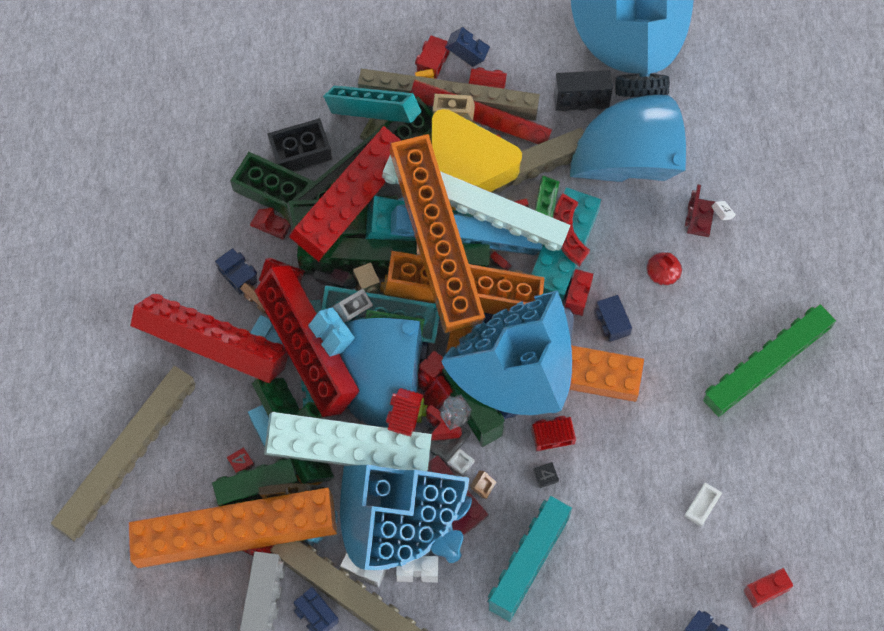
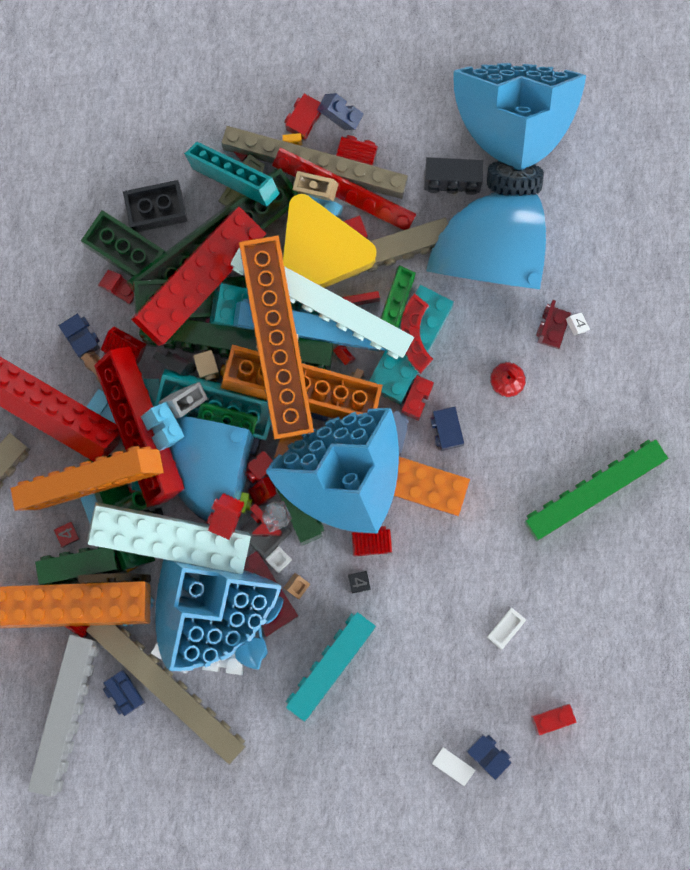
camera: 10 degrees right, 15 degrees up
(258, 393) = (87, 478): none -> orange brick

